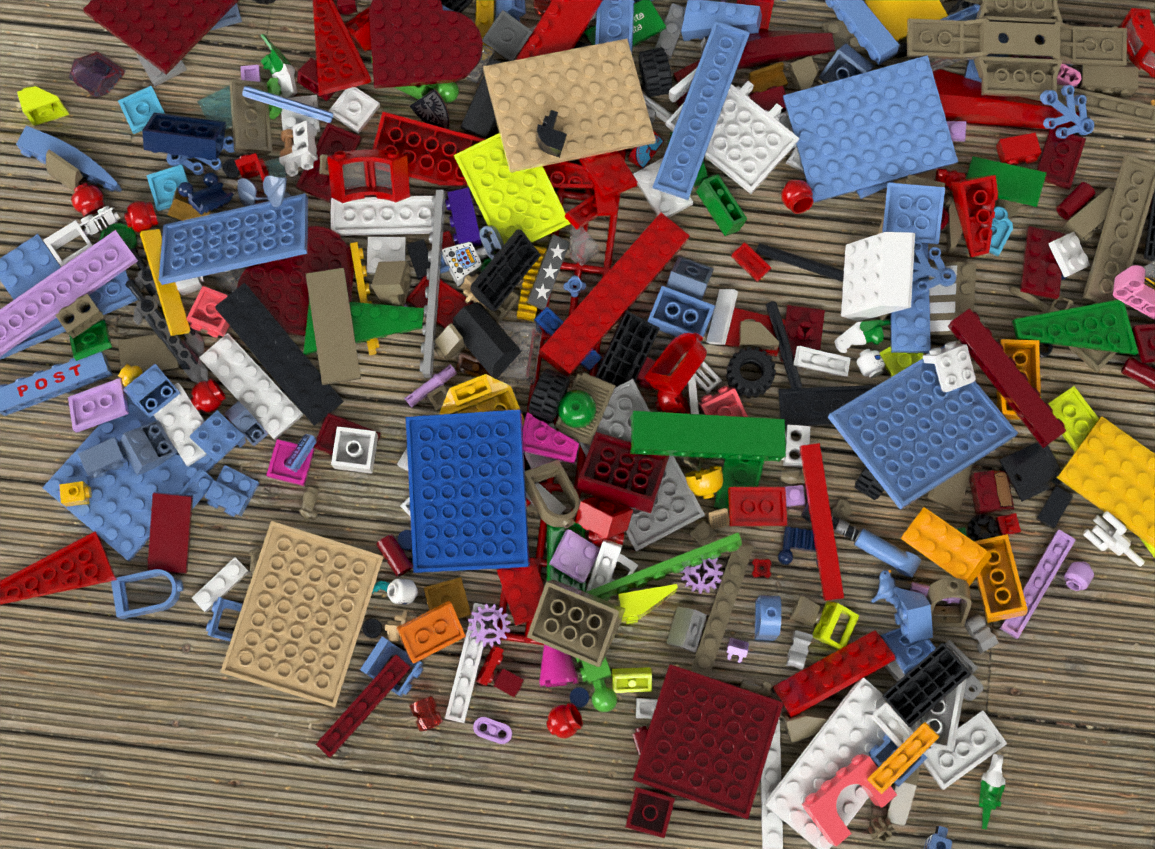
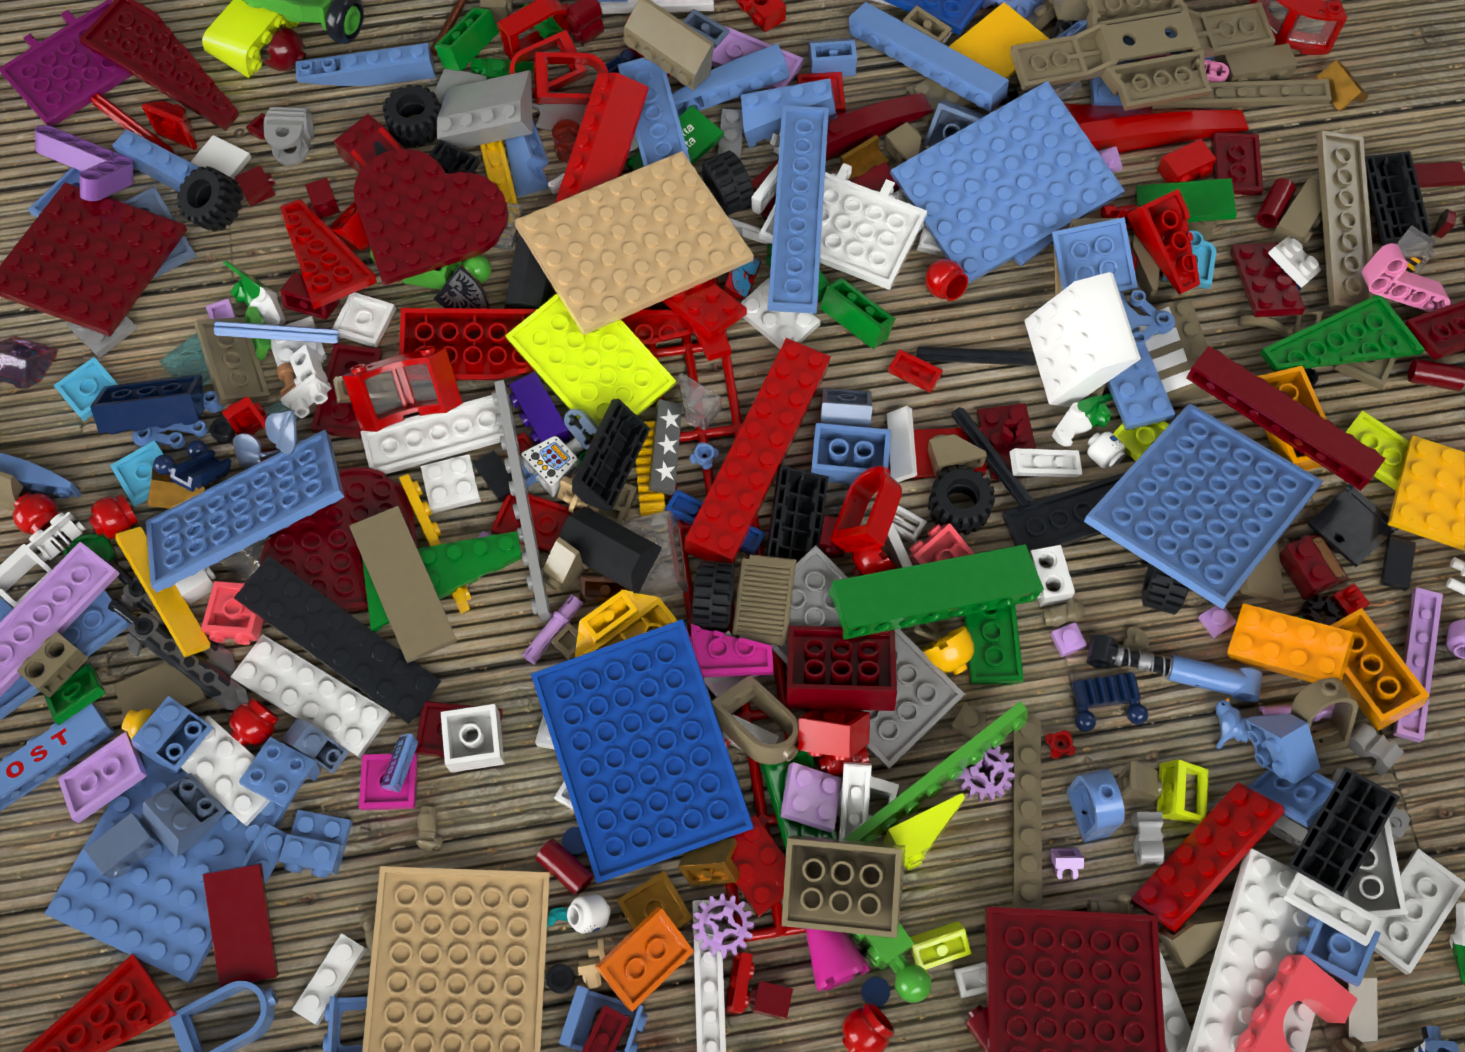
camera: 15 degrees left, 10 degrees down
(75, 493) = (91, 908): yellow brick -> none
(392, 282) = (466, 509): dark tan plate -> none
(493, 581) = (710, 864): none -> pearl gold panel
(507, 36) = (533, 185): dark grey panel -> none
(547, 138) = (620, 279): black brick -> none
(577, 409) = (756, 602): green cylinder -> none
(582, 213) = (689, 362): red plate -> none
(686, 628) = (989, 853): light grey panel -> none
(718, 518) = (982, 695): tan slope -> none
(757, 506) = (1028, 664): red plate -> none
(821, 522) = (1120, 661): red tile -> none
(903, 757) = (1353, 942): light orange tile -> none
(907, 513) = (1217, 621): none -> lavender plate
(952, 365) = (1212, 421): white bracket -> none
(1084, 124) = (1251, 119): medium blue plant -> none

